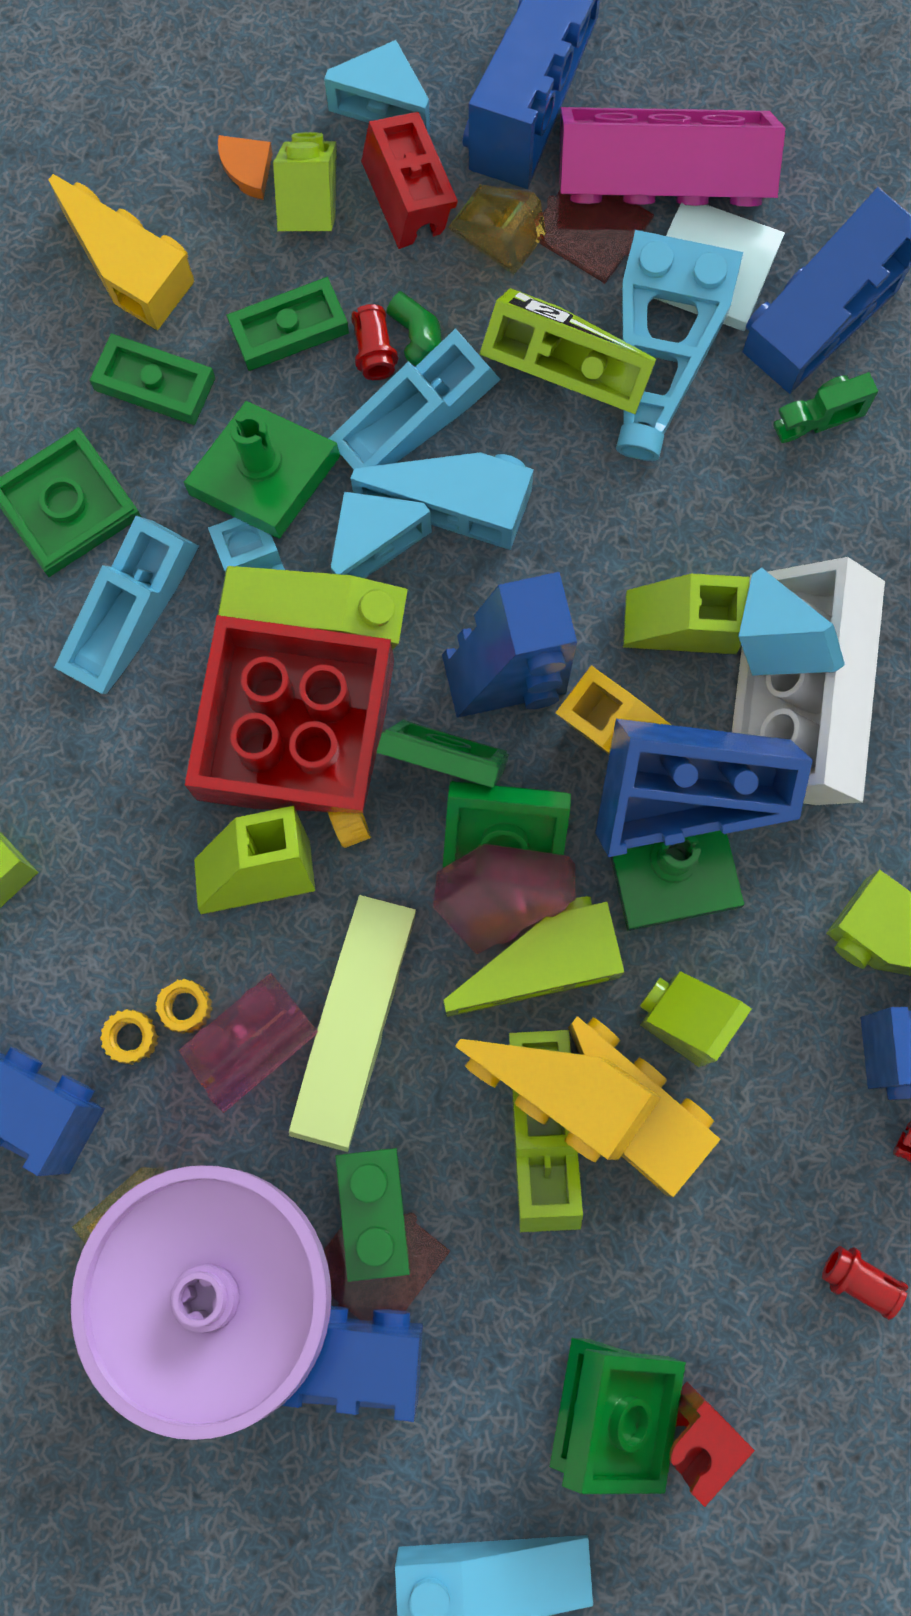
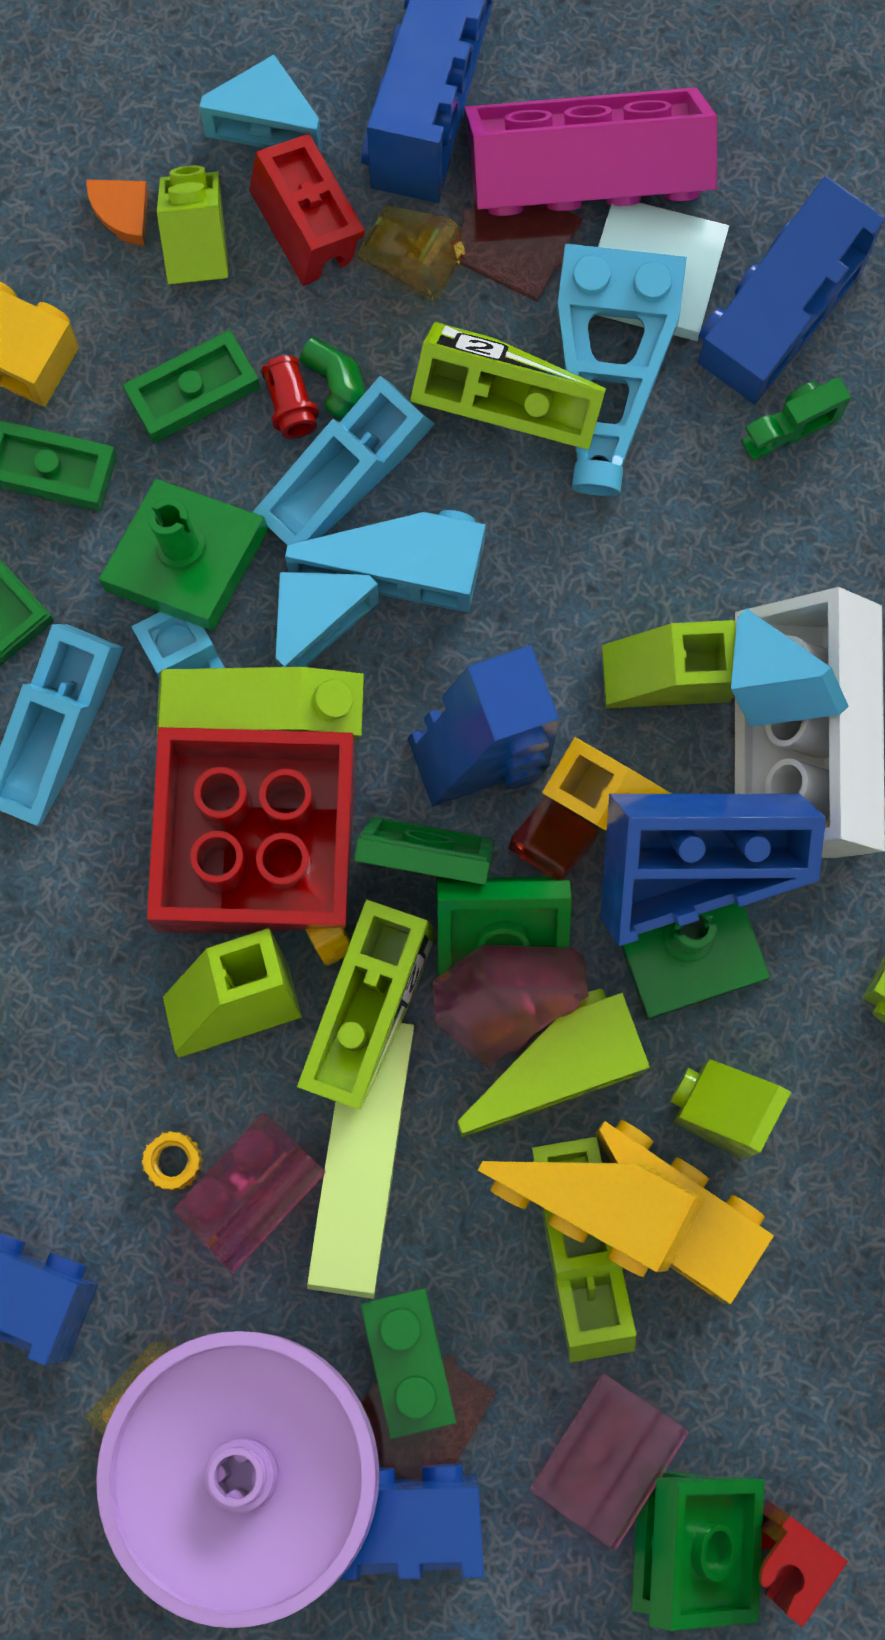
camera: 10 degrees left, 0 degrees up
(114, 1025) = (99, 1190): yellow axle -> none
(375, 884) = (367, 1003): none -> lime slope
(544, 1327) = (609, 1461): none -> clear pink plate
(561, 757) = (553, 839): none -> clear red tile

